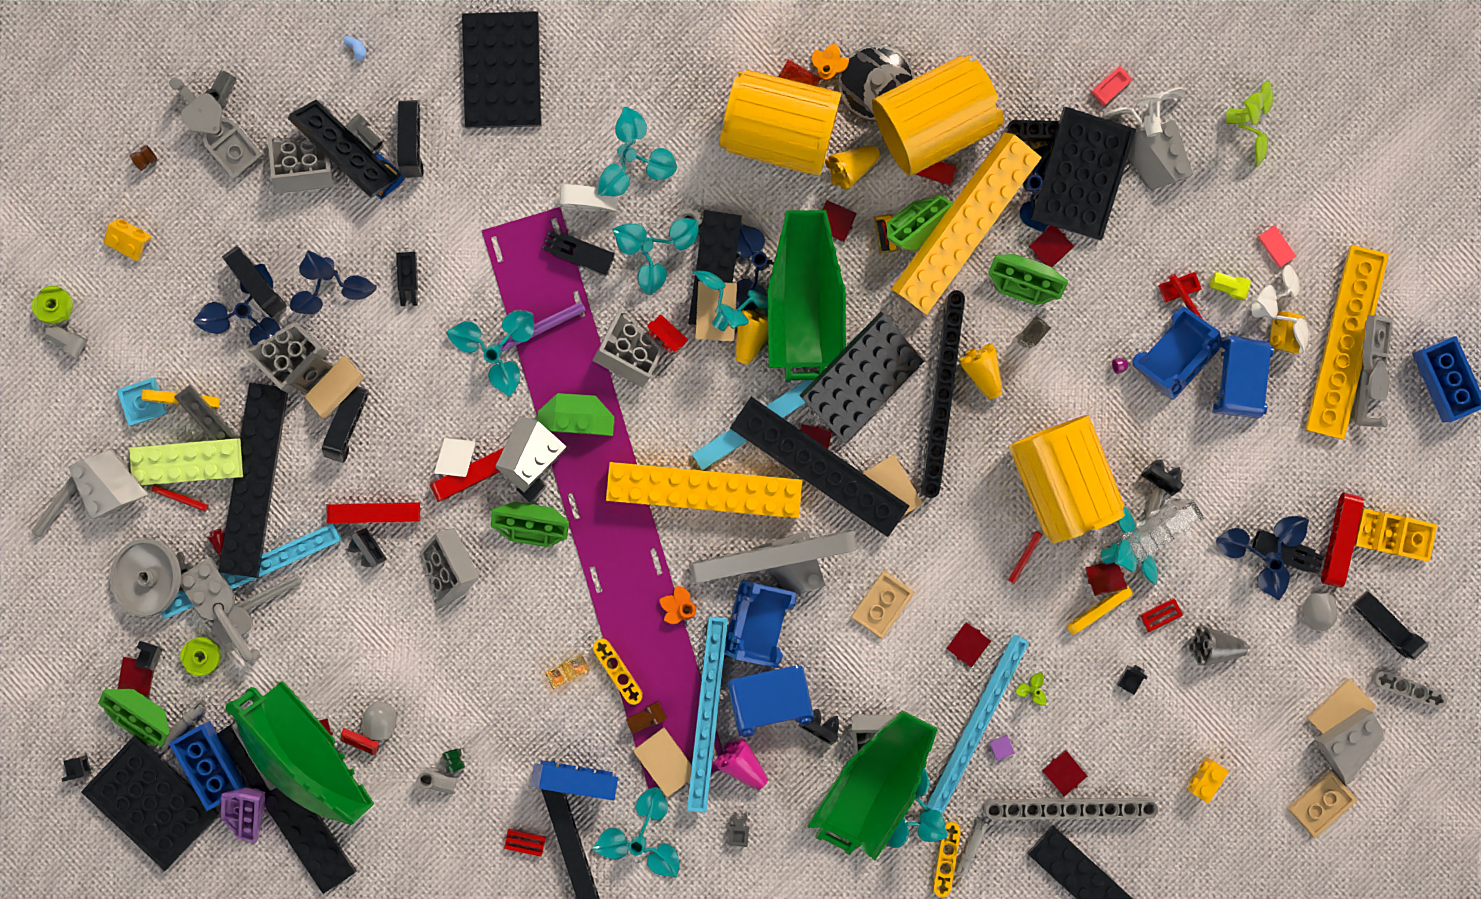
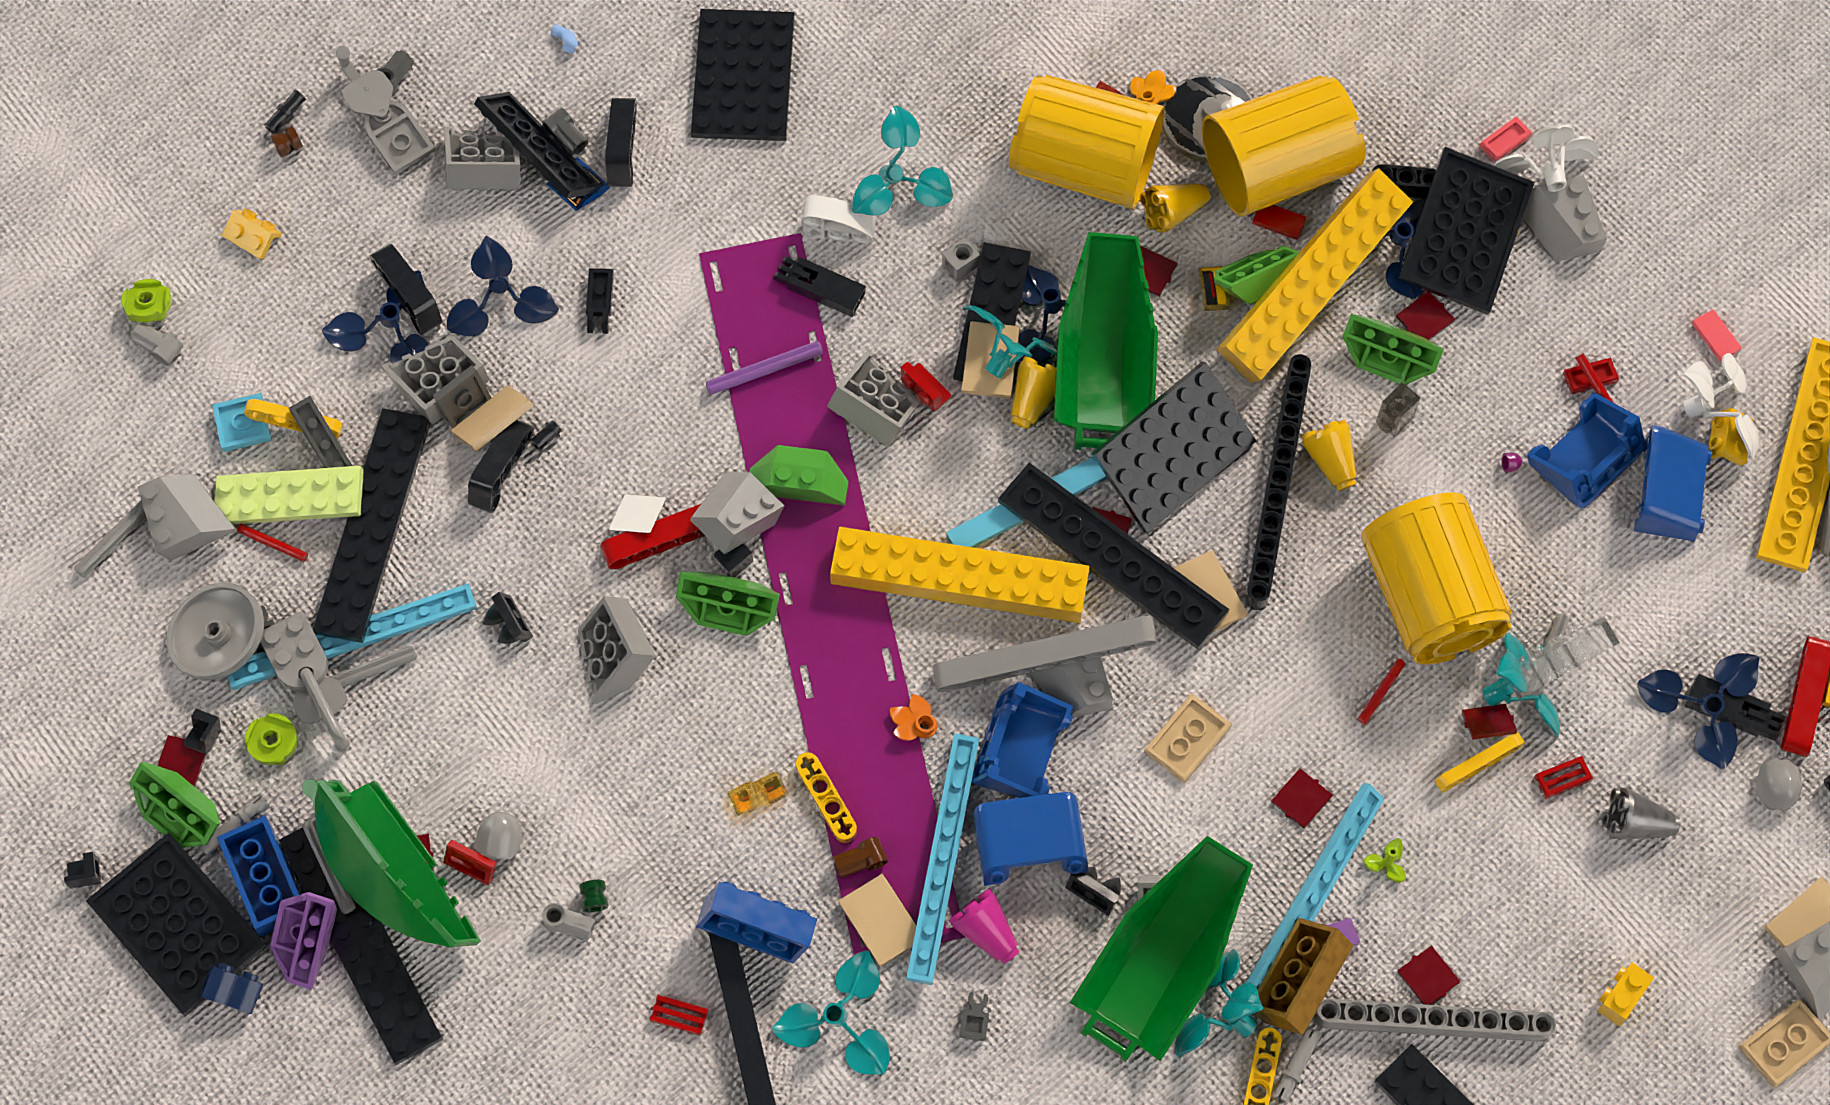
camera: 10 degrees right, 20 degrees down
(138, 130) = (285, 112): none -> black pin
(197, 852) = (231, 988): none -> dark blue brick
(216, 539) = (314, 593): dark red cone -> none
(373, 512) = (523, 575): red beam -> none
(380, 393) = (546, 435): none -> black pin
(467, 339) = (711, 423): teal plant -> none
(633, 237) = (888, 259): teal plant -> none
(973, 788) = (1302, 975): none -> pearl gold brick
(1131, 679) = (1523, 855): black bracket -> none
(1168, 481) = (1561, 600): black tile -> none
(1234, 286) = (1663, 378): neon yellow piece -> none
(1254, 104) = (1682, 154): lime plant -> none

